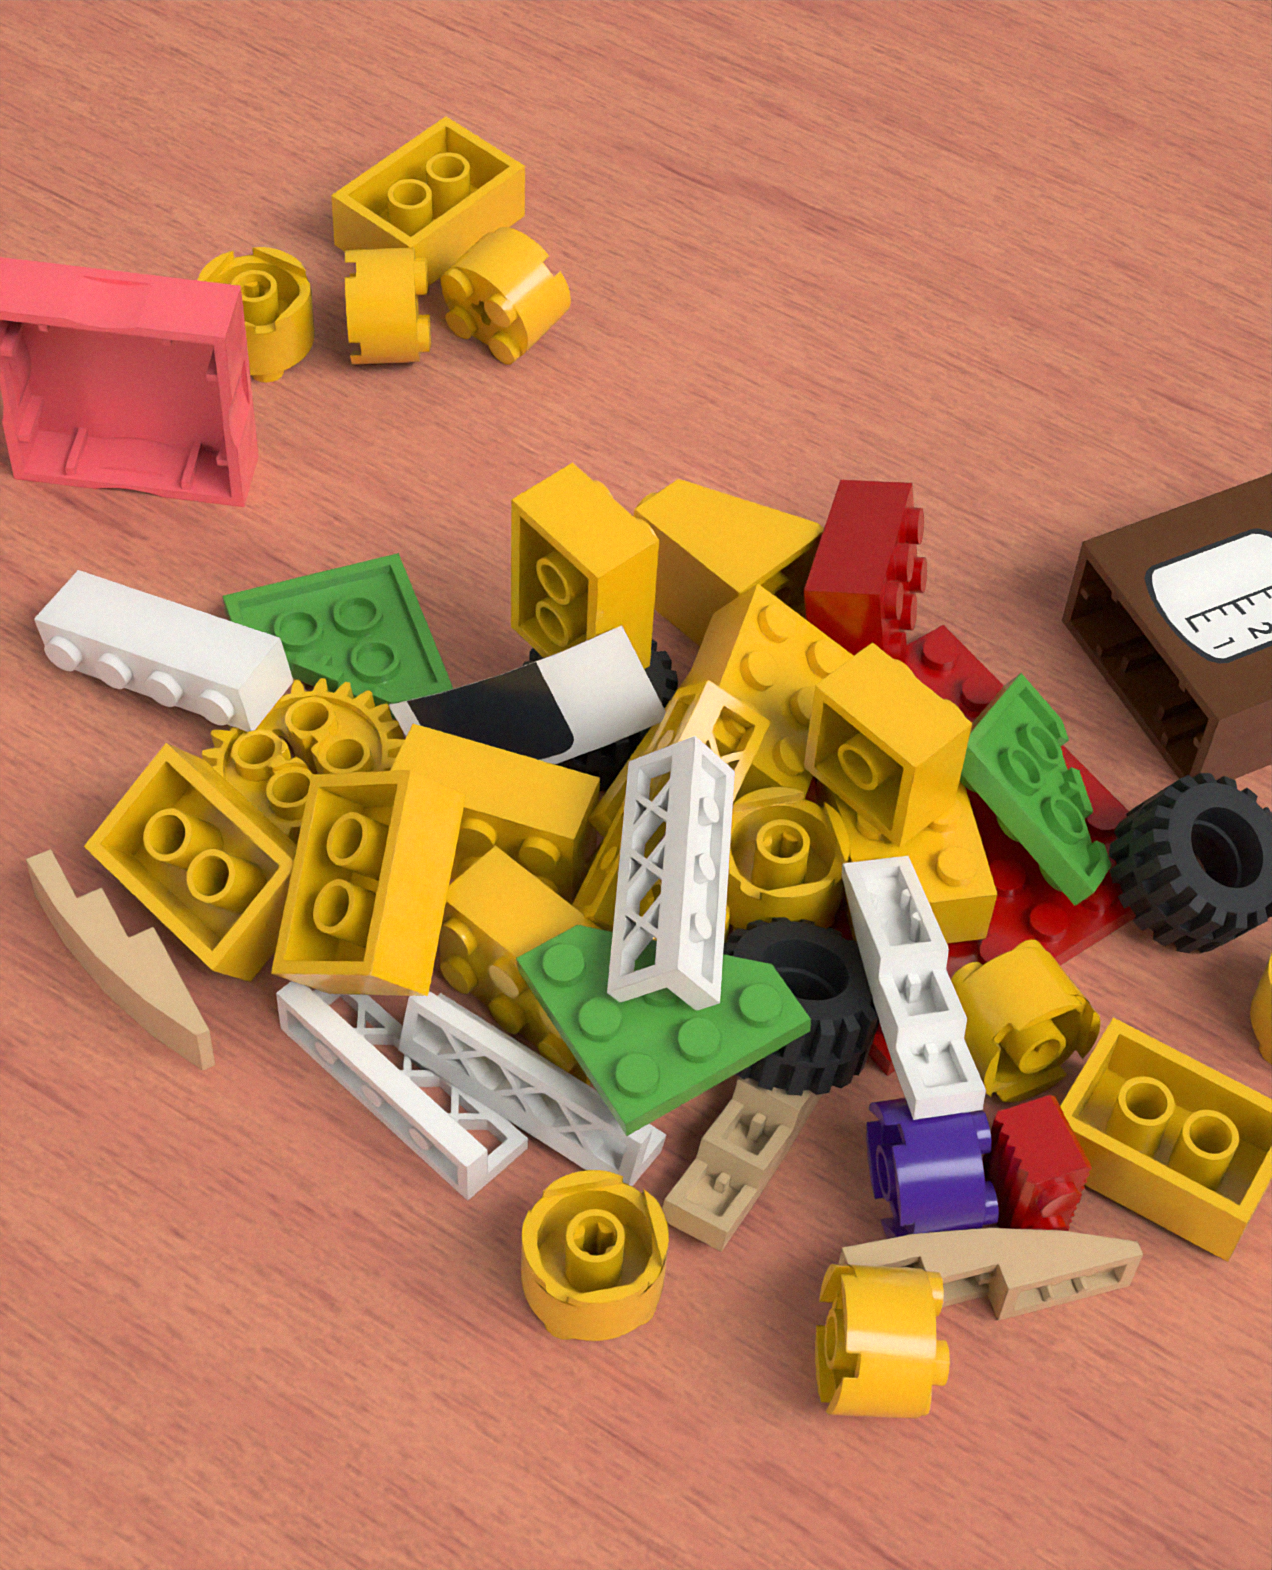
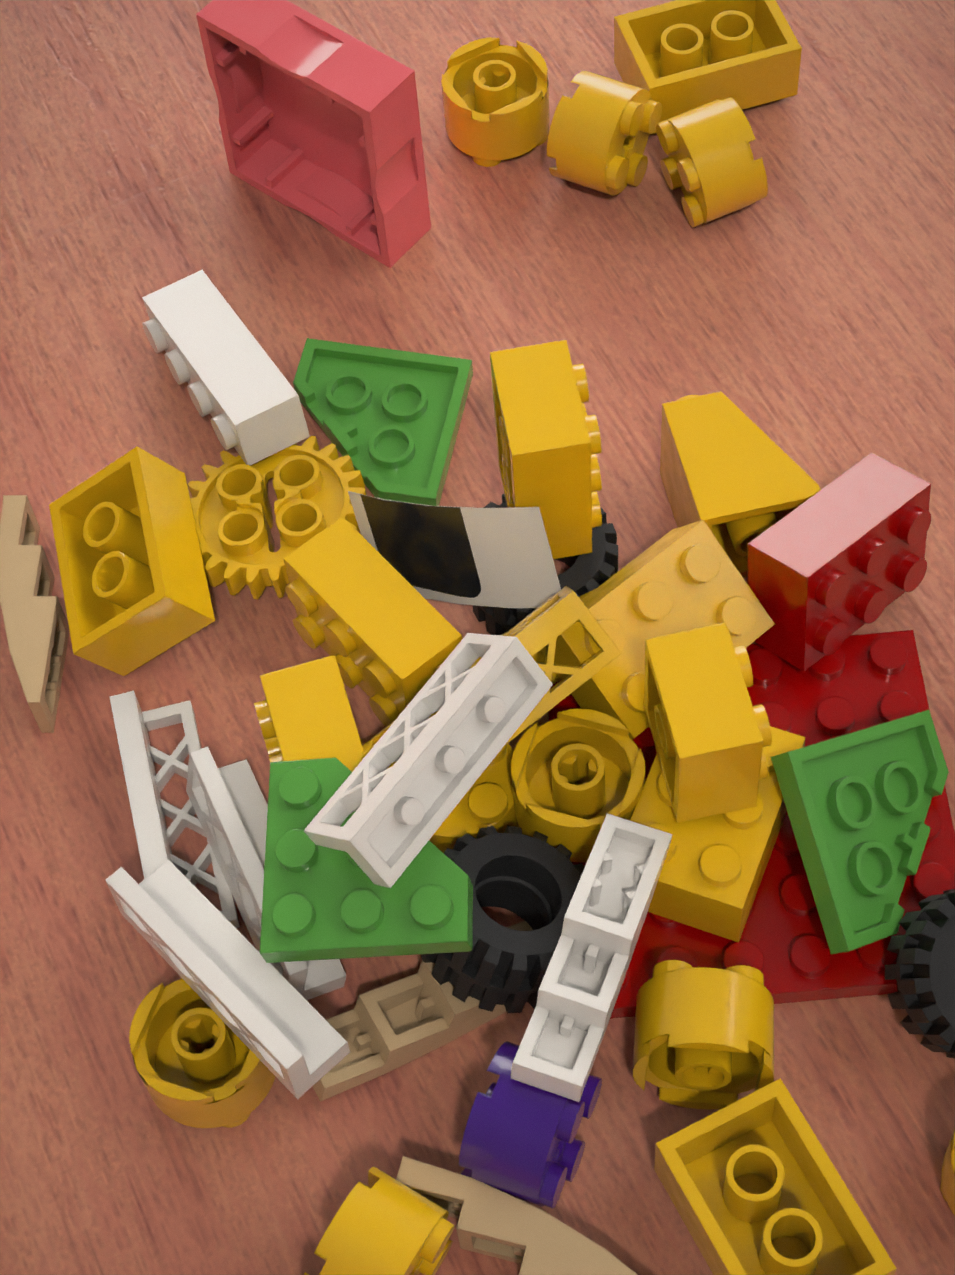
camera: 40 degrees right, 5 degrees up
(369, 883) = (205, 643): yellow brick -> none
(593, 1168) = (230, 976): none -> white fence
(1035, 1166) = (613, 1180): red brick -> none

